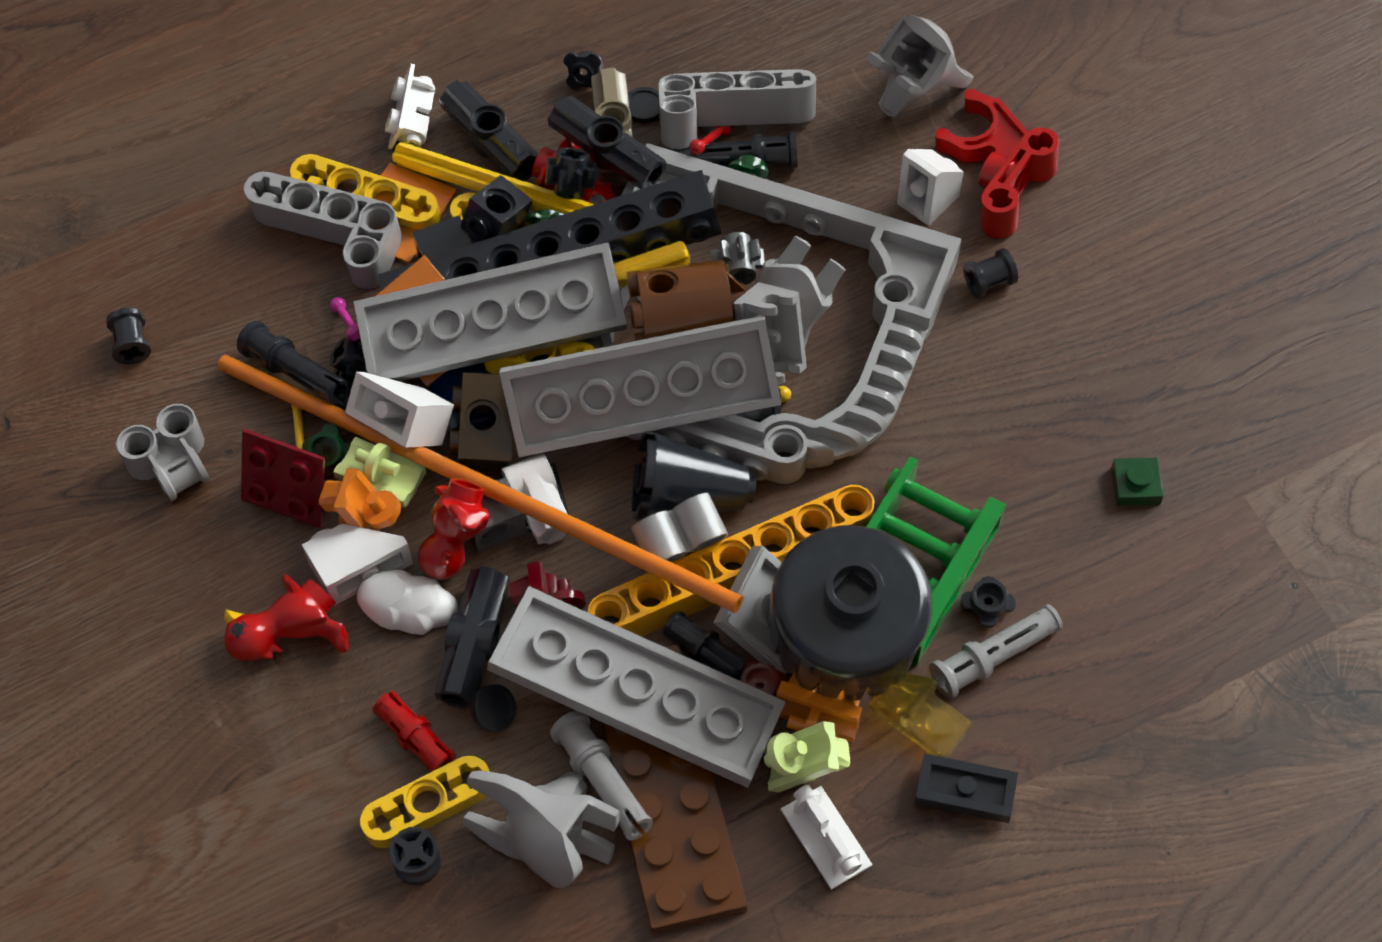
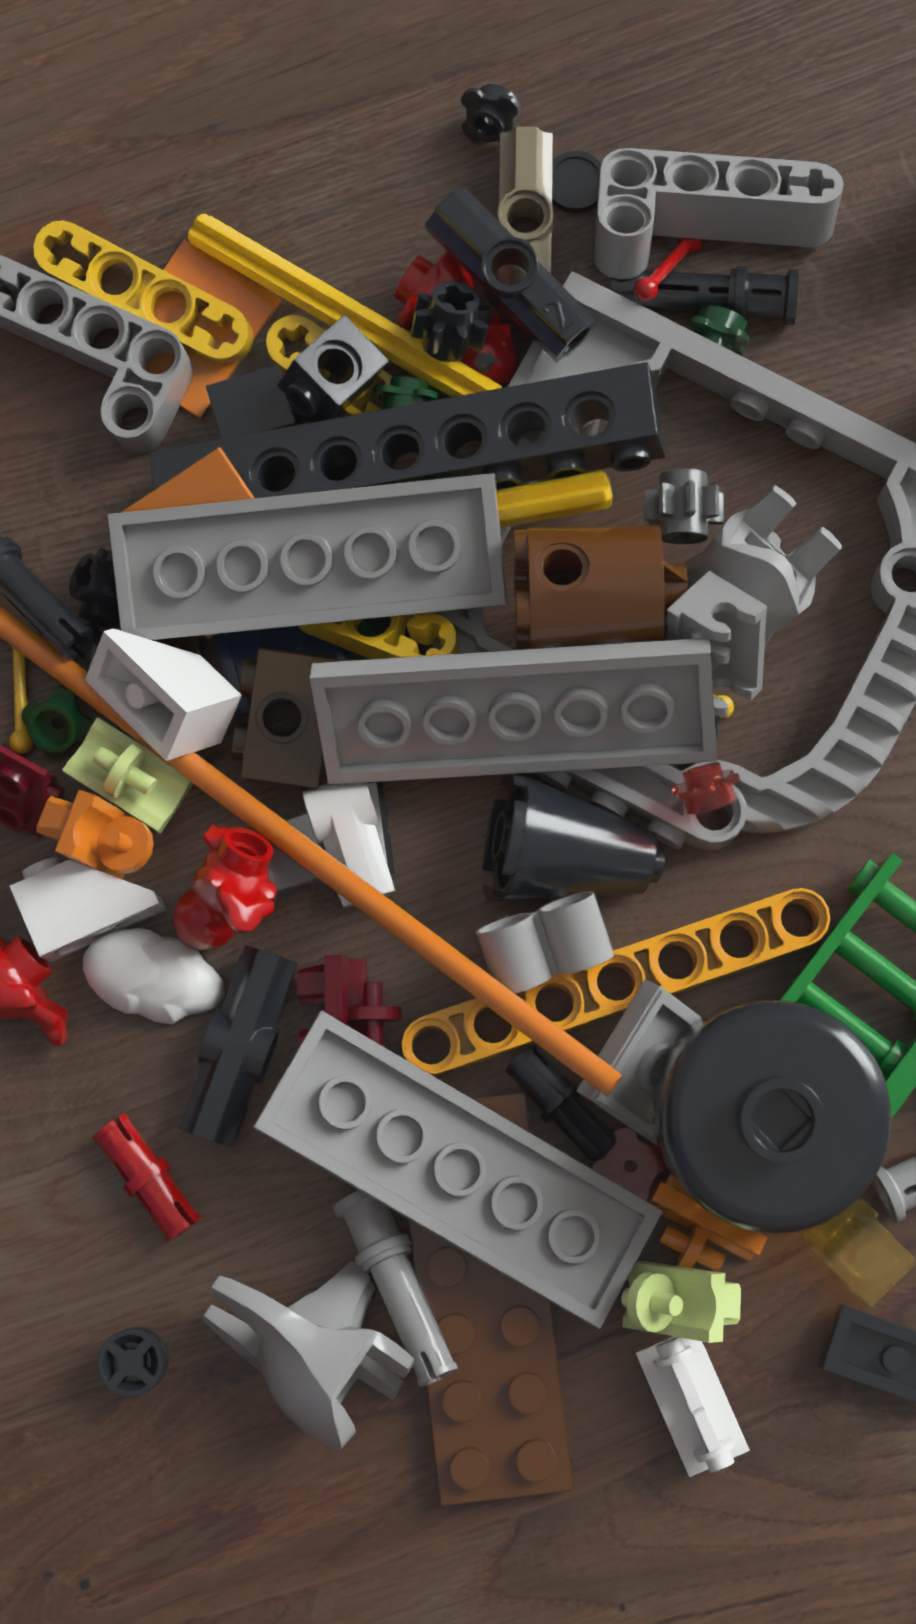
camera: 10 degrees right, 20 degrees up
(338, 306) = (90, 481): dark pink hinge -> none
(411, 96) = (225, 130): white hinge -> none
(433, 782) = (104, 1281): yellow beam -> none
(489, 130) = (320, 181): black piece -> none
(493, 707) = (256, 1159): black piece -> none
(777, 423) = (707, 788): none -> clear red plate

